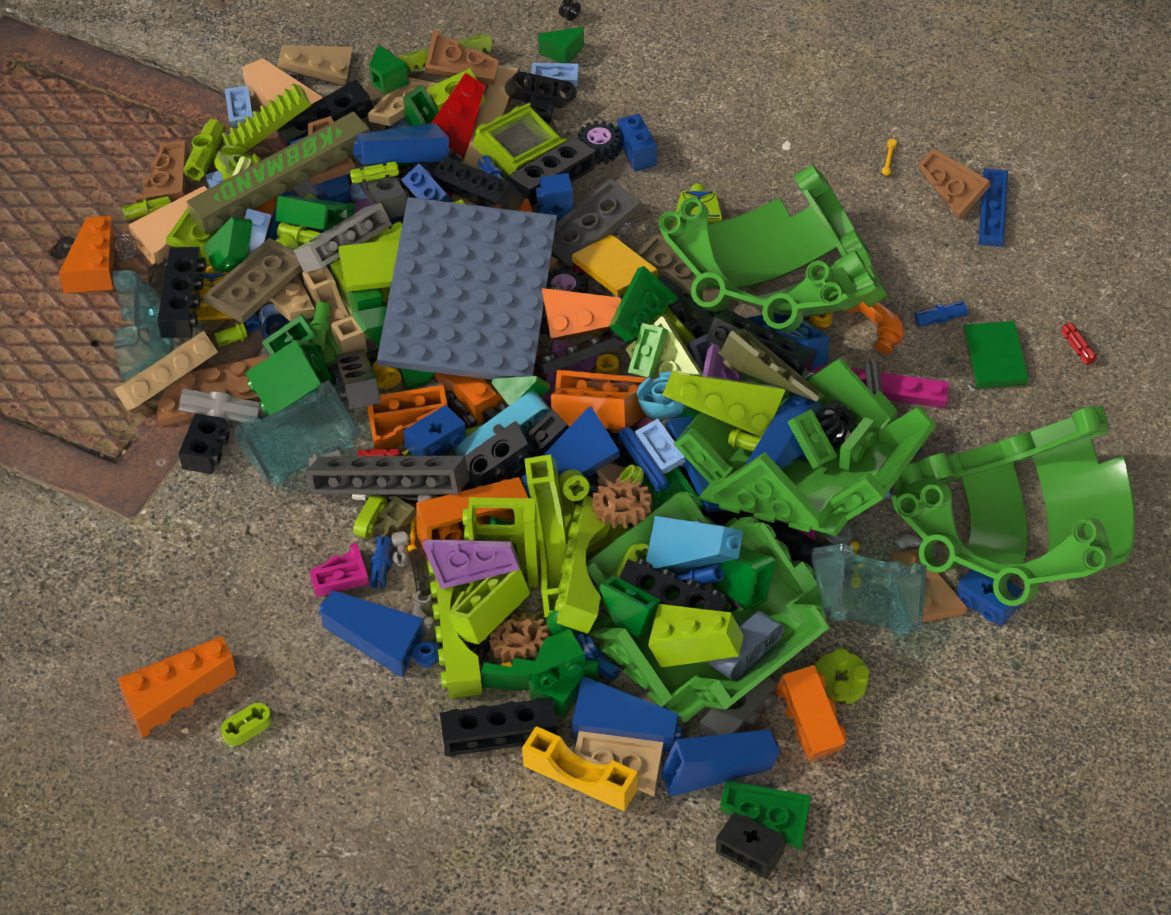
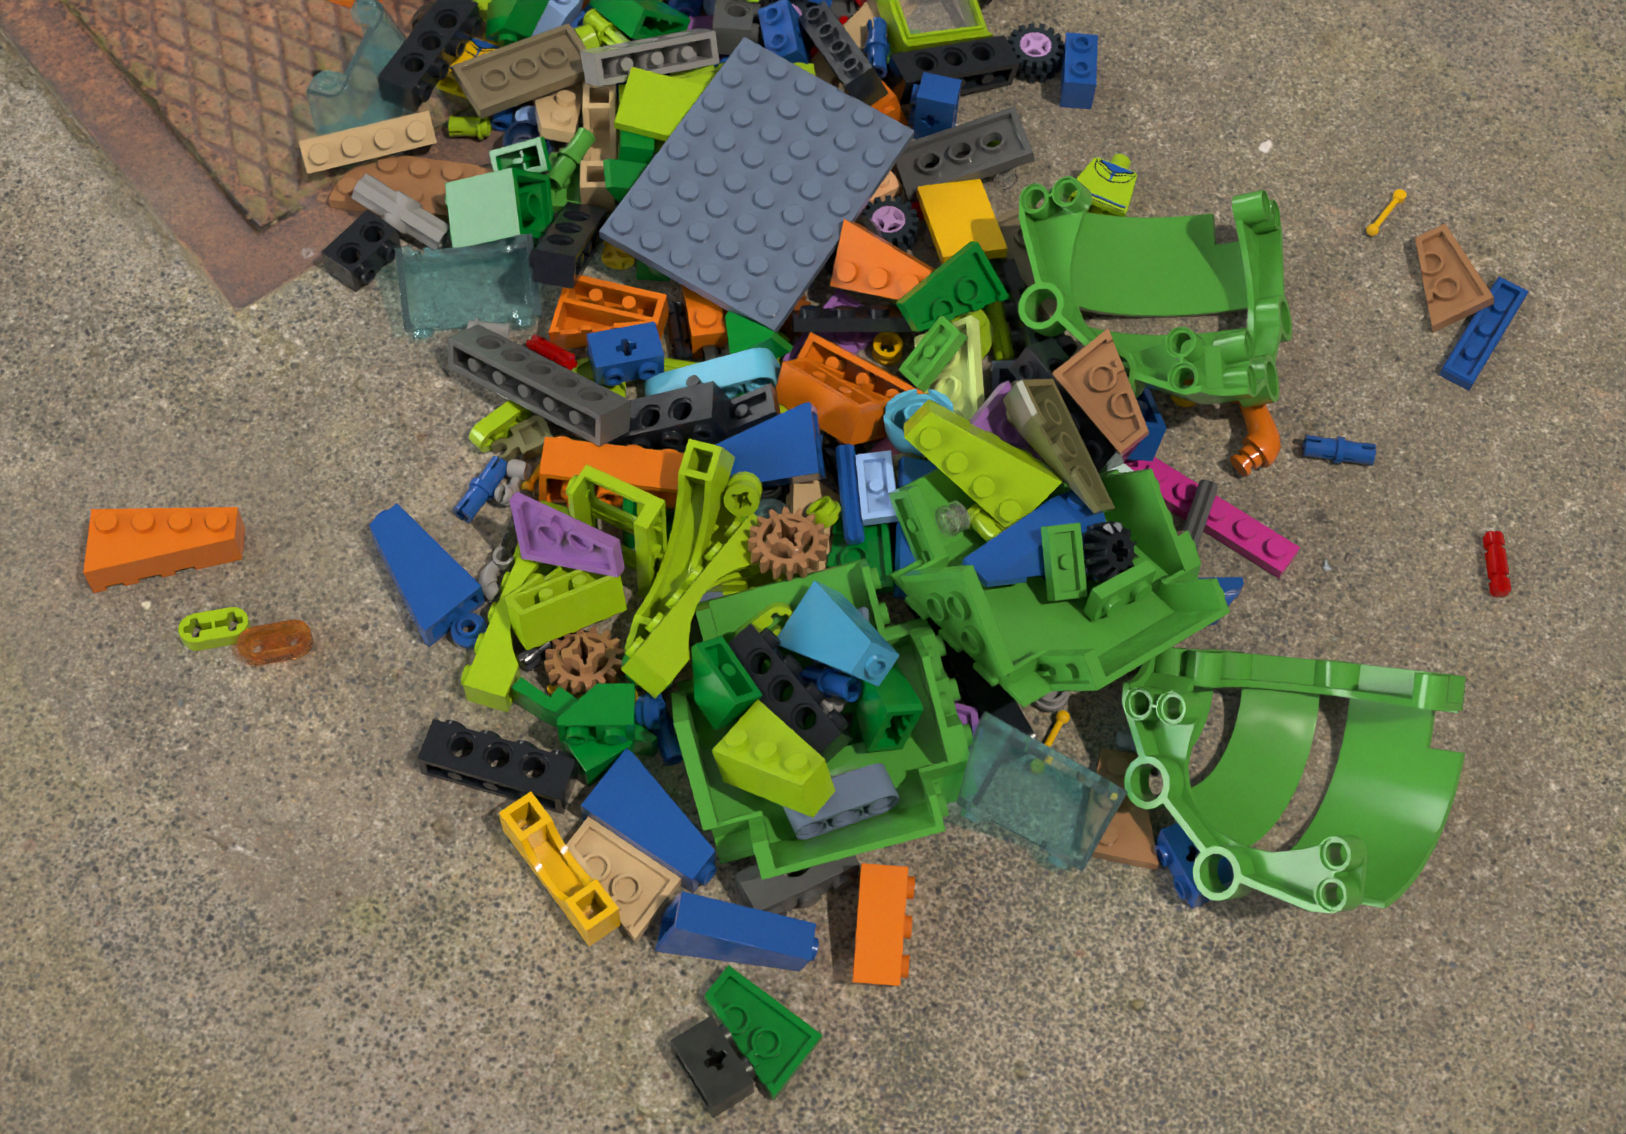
camera: 20 degrees right, 10 degrees up
(294, 714) = (276, 641): none -> clear orange plate
(340, 573) = (426, 482): dark pink wing -> none
(723, 443) = (952, 518): none -> clear bush
(780, 325) = (1103, 392): none -> medium nougat wing
(847, 664) = (959, 868): lime plate -> none
(995, 354) = (1380, 534): green tile -> none

